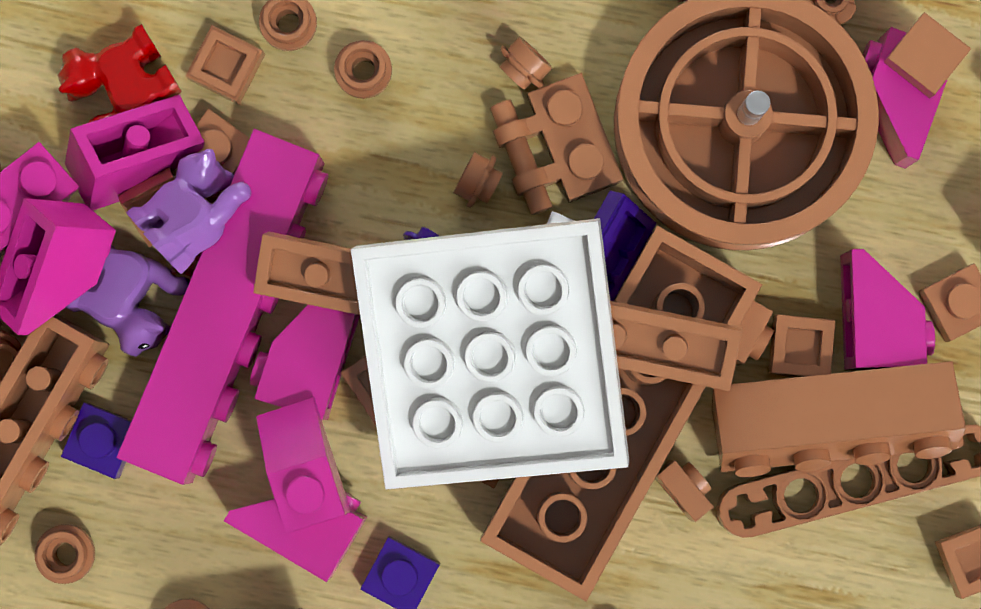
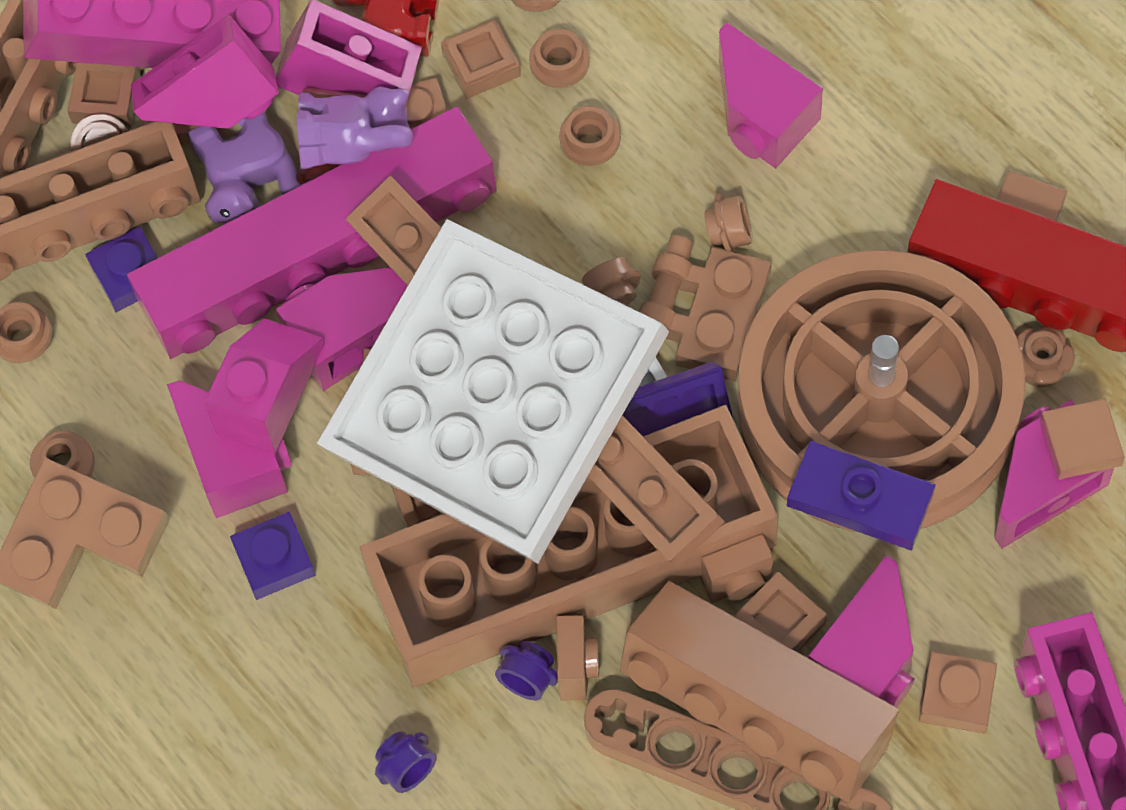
camera: 45 degrees right, 20 degrees down
(655, 521) = (526, 670): none -> dark purple plate
(809, 222) = (860, 495): none -> dark purple plate

